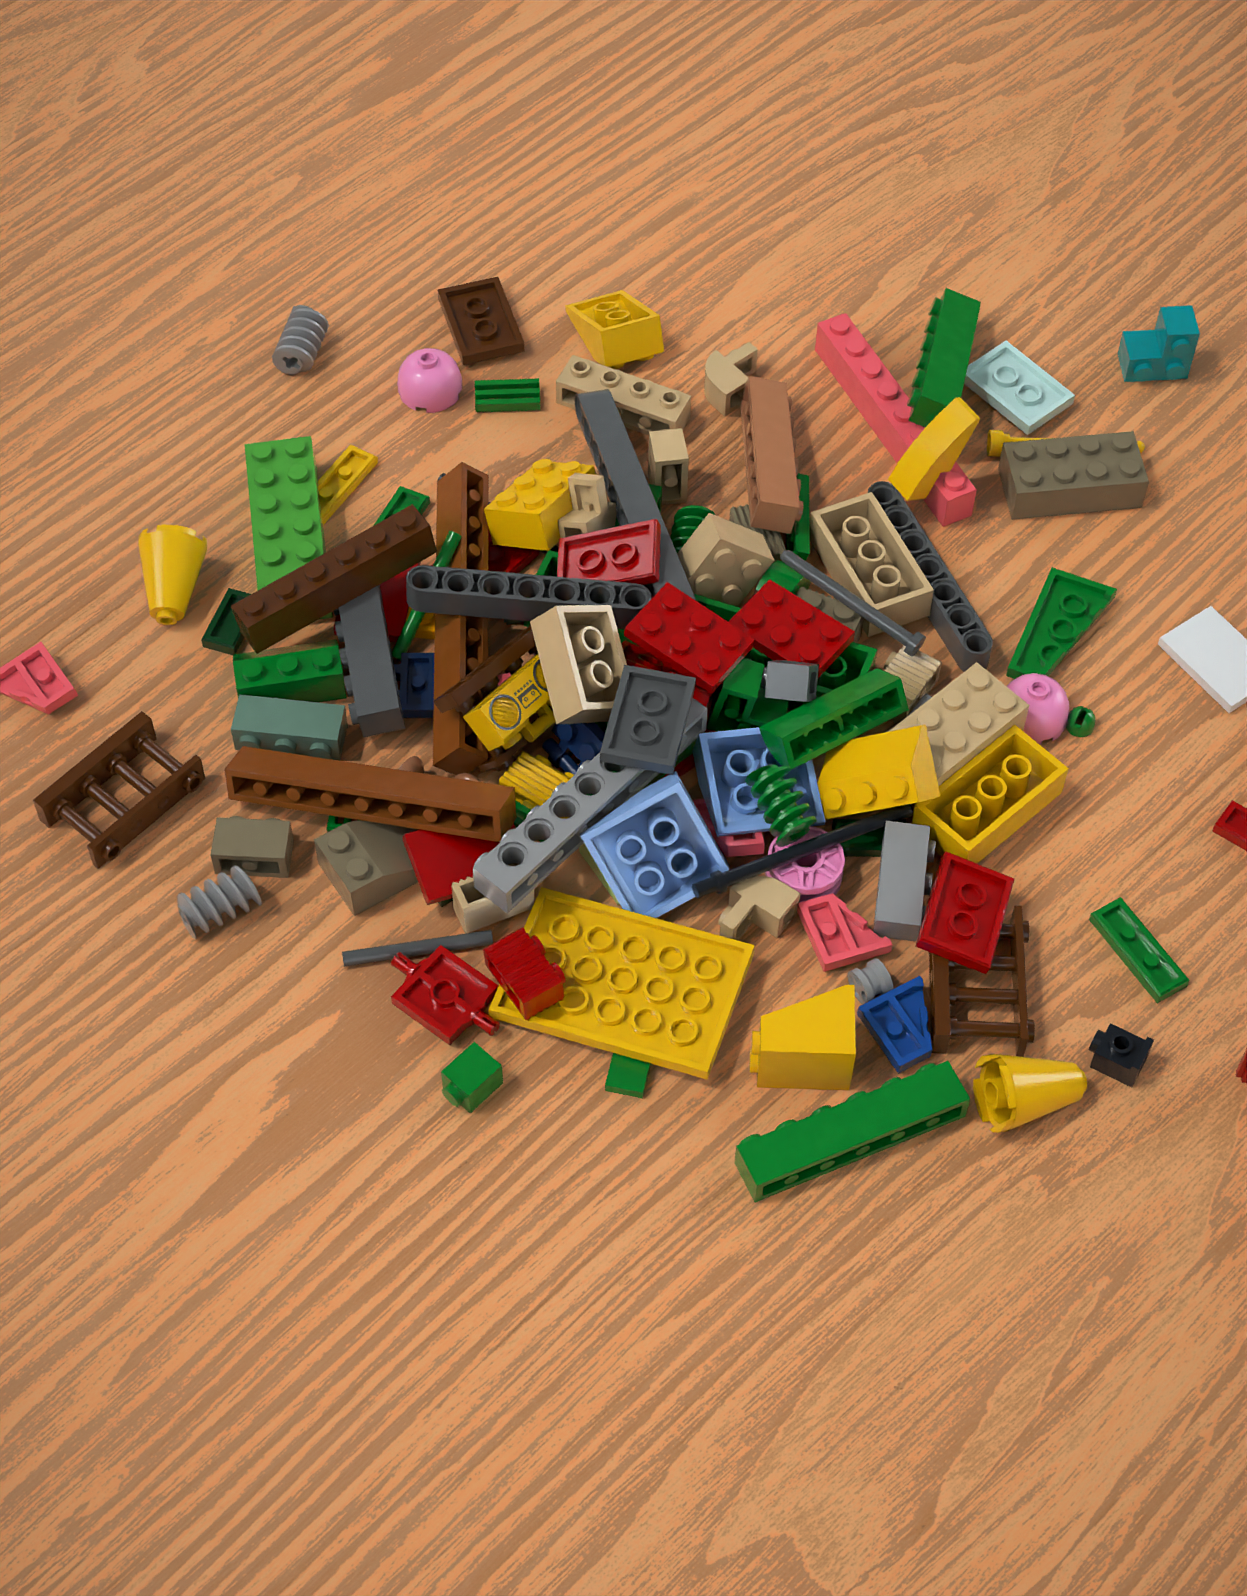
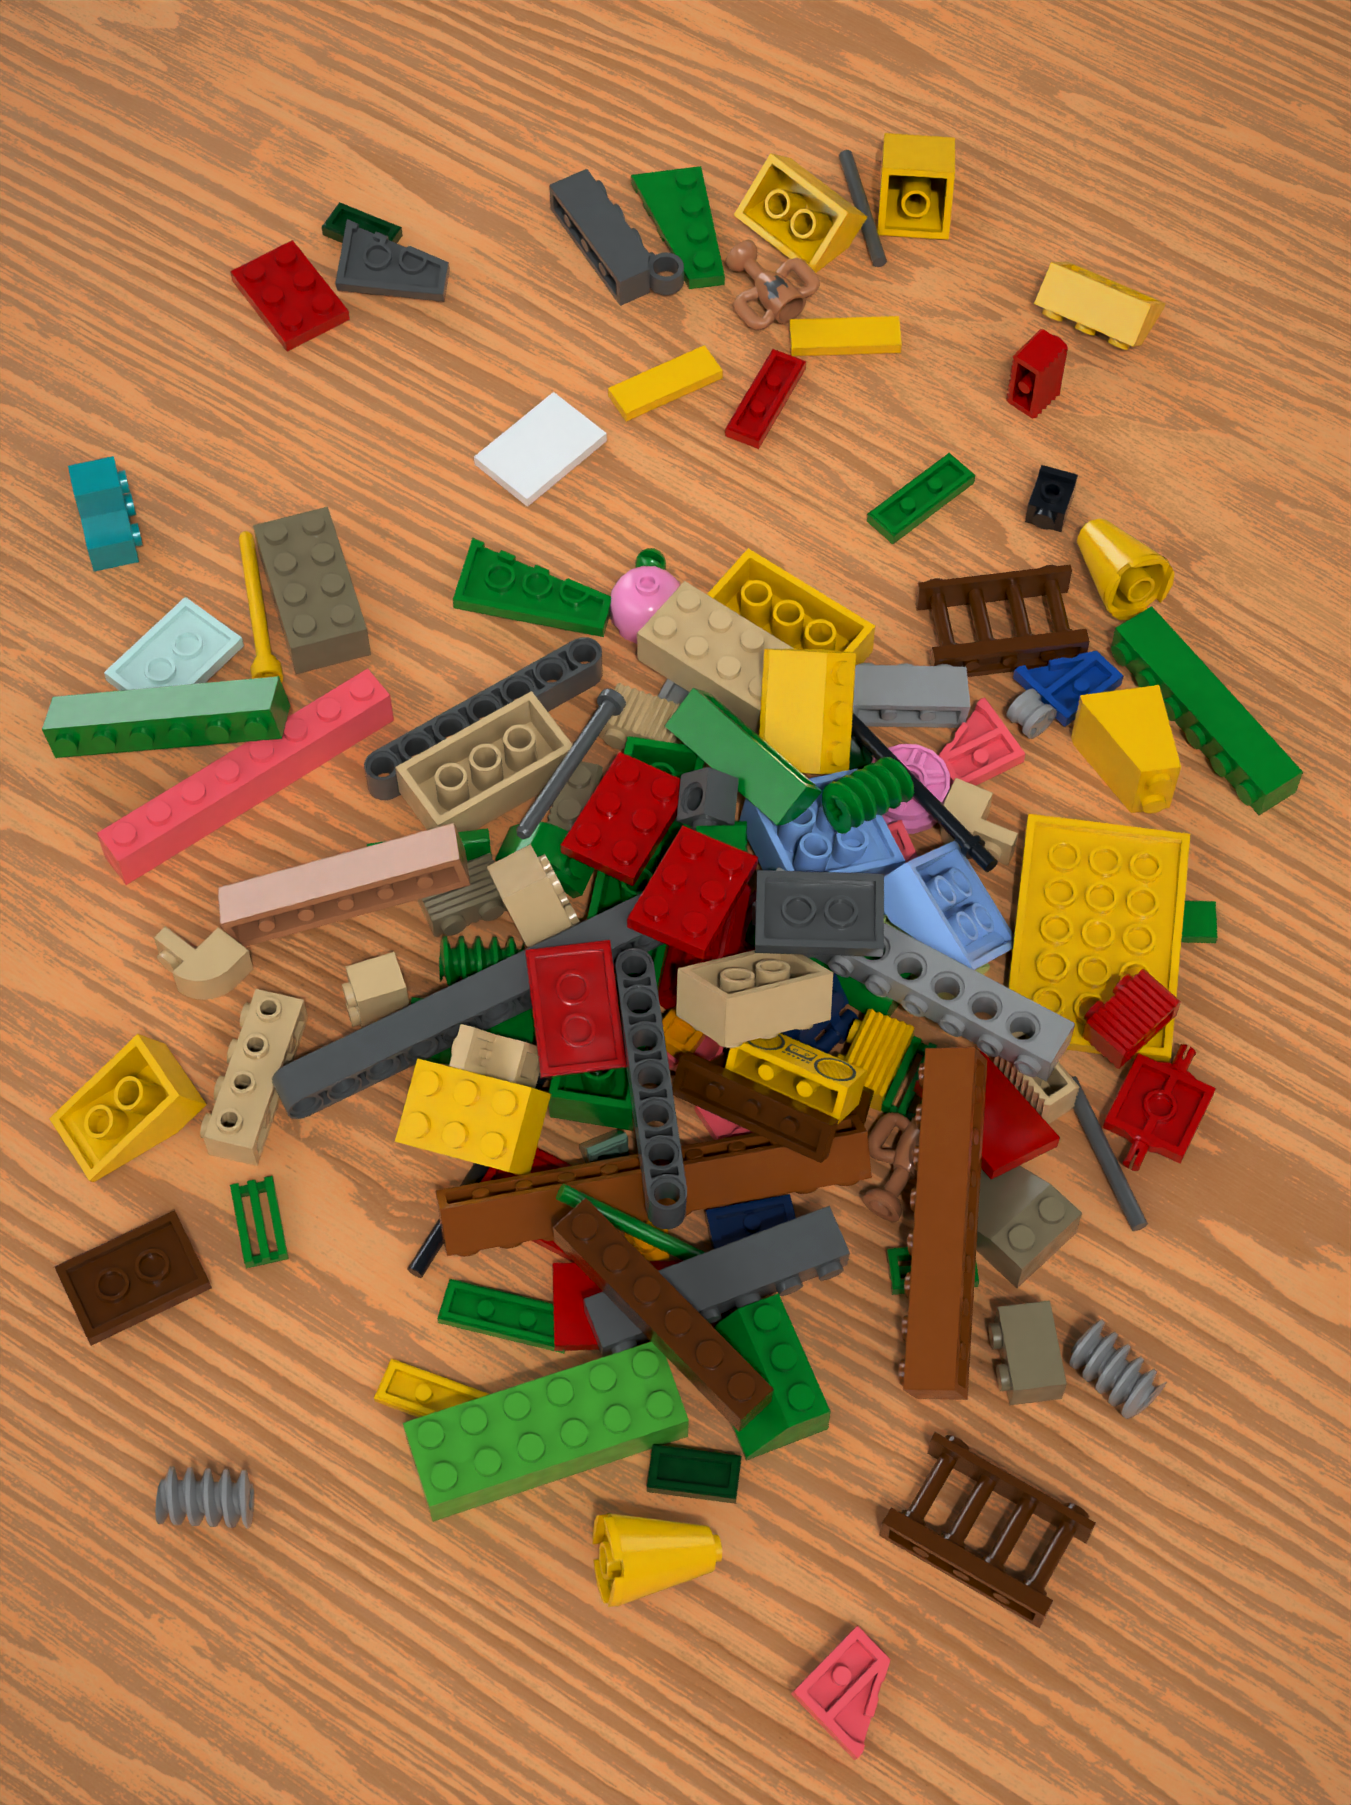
camera: 100 degrees left, 5 degrees up
(290, 726) = (852, 1353): sand green brick -> none
(429, 380) = (251, 1320): bright pink cylinder -> none
(471, 1078) = (1254, 1059): green brick -> none
(934, 450) = (340, 697): yellow slope -> none
(965, 912) = (941, 628): red tile -> none

